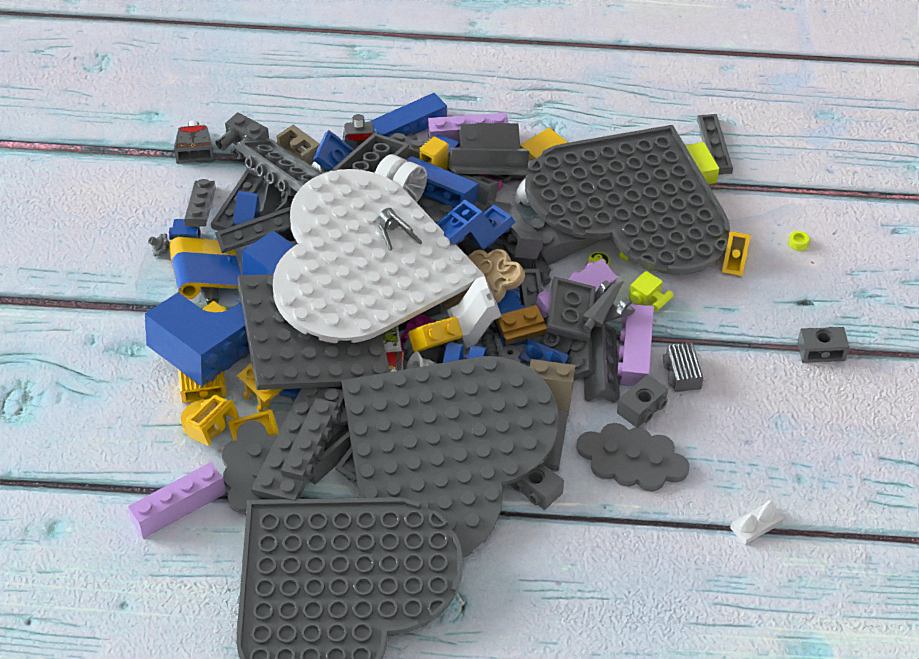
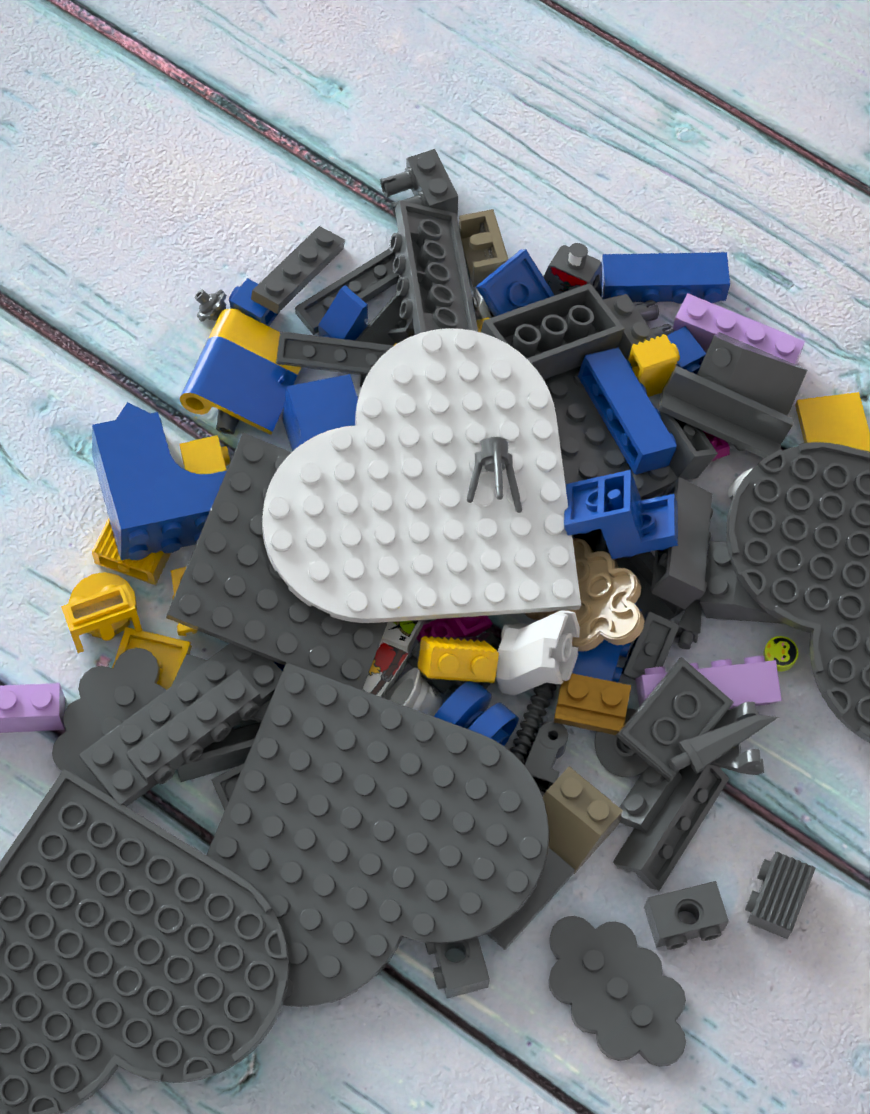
camera: 30 degrees right, 15 degrees up
(193, 144) = (352, 165): dark grey torso -> none
(406, 174) = (574, 383): white wheel -> none
(538, 351) = (599, 765): blue tile -> none
(637, 345) = (738, 822): lavender brick -> none
(647, 290) = (815, 741): neon yellow brick -> none

